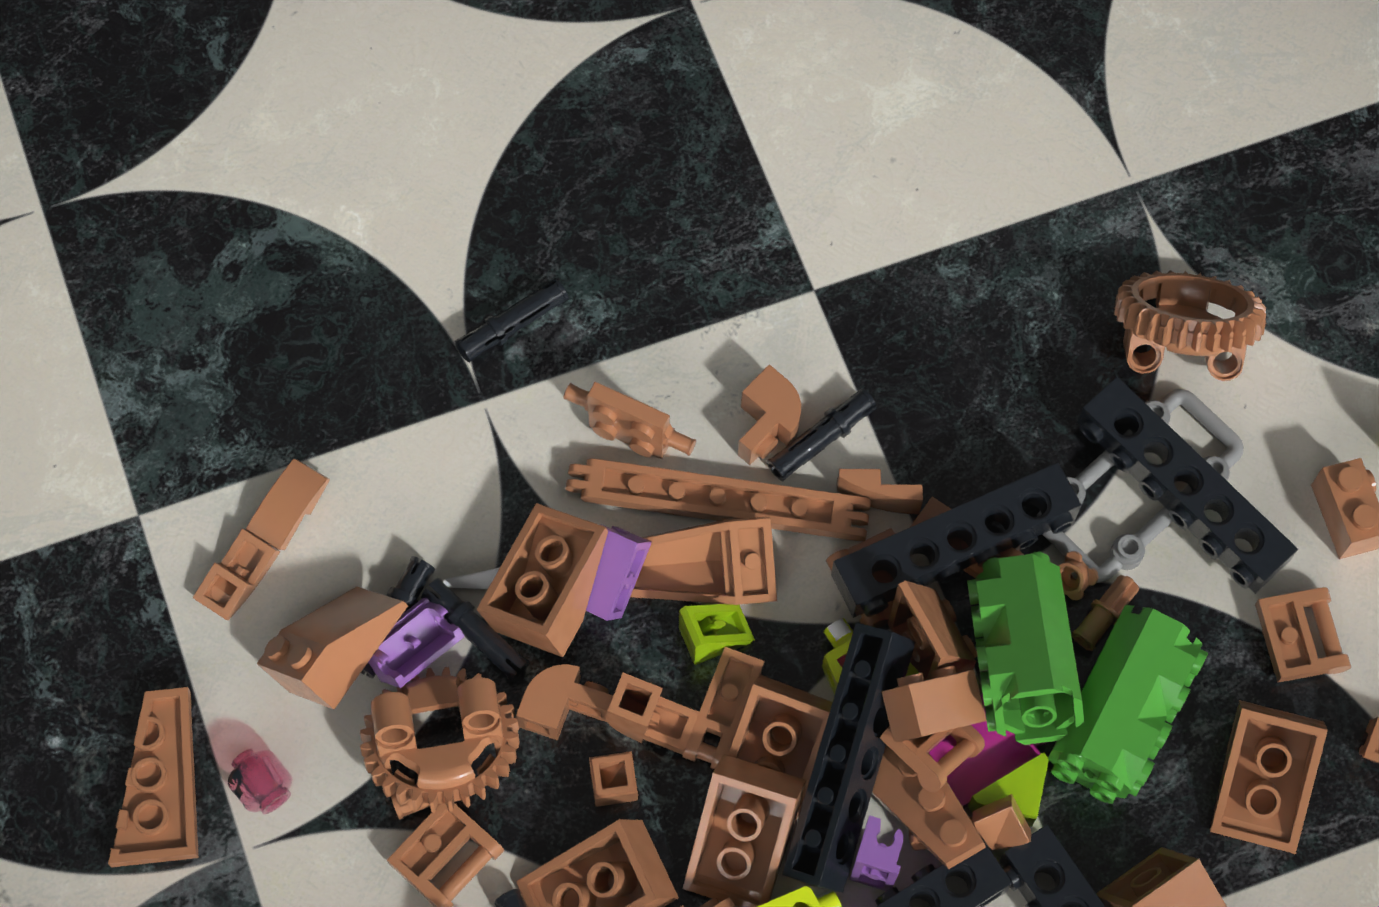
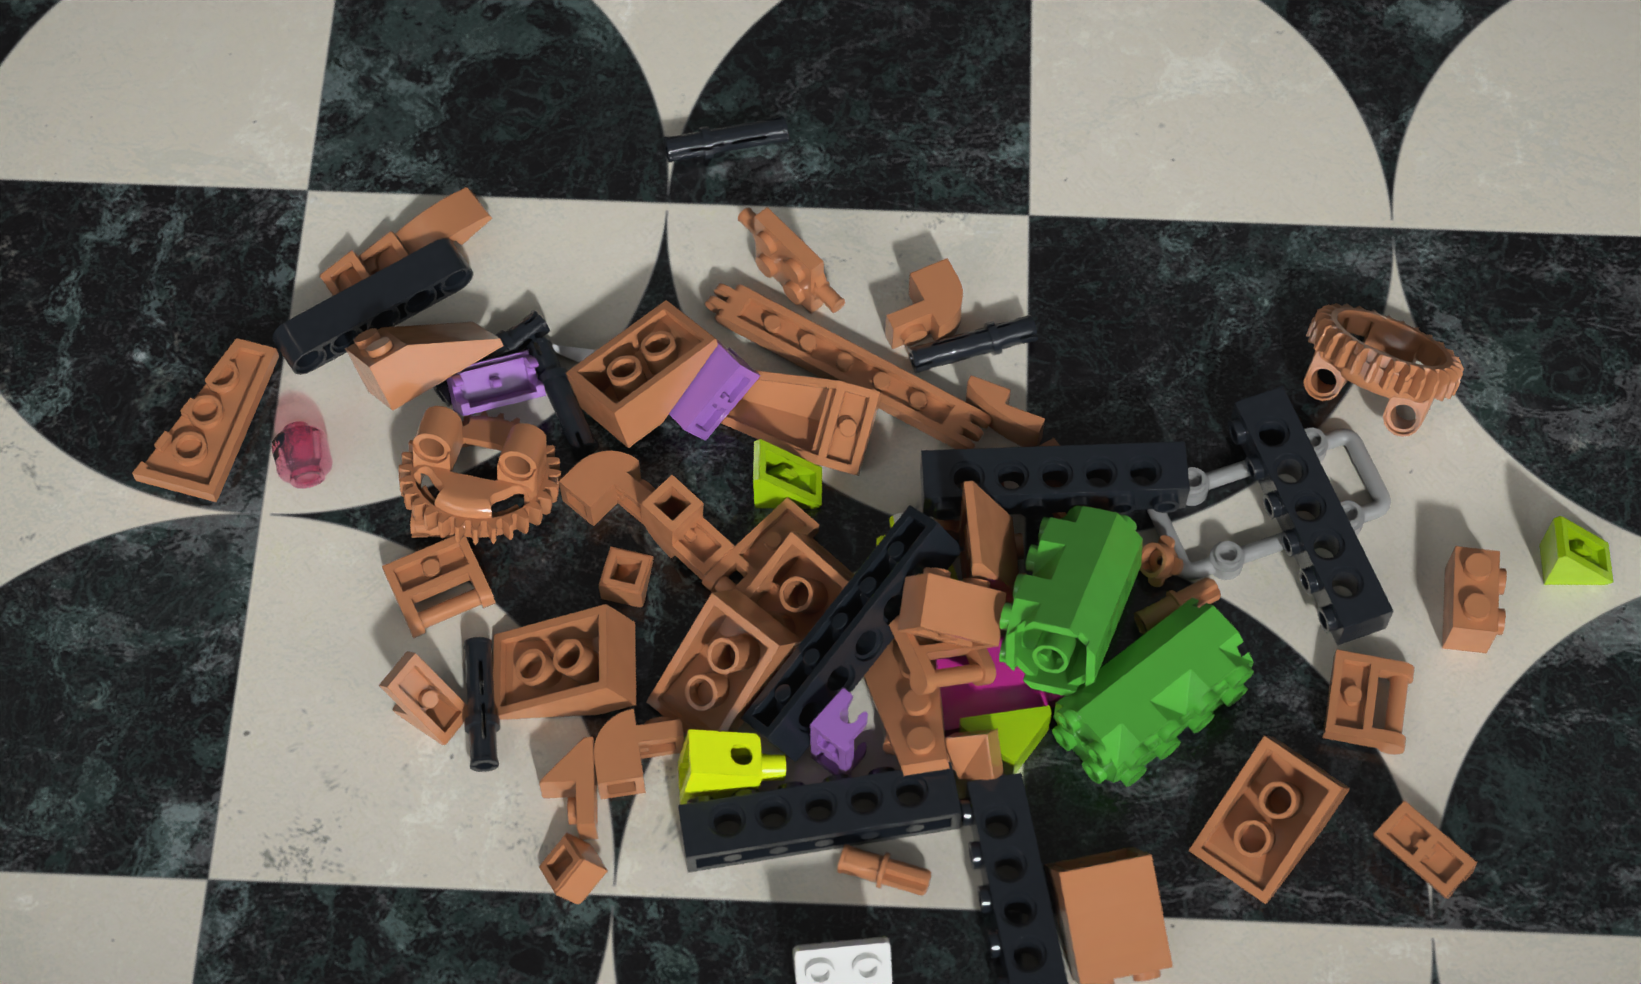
camera: 25 degrees right, 5 degrees down
(258, 609) = (372, 303): none -> black beam

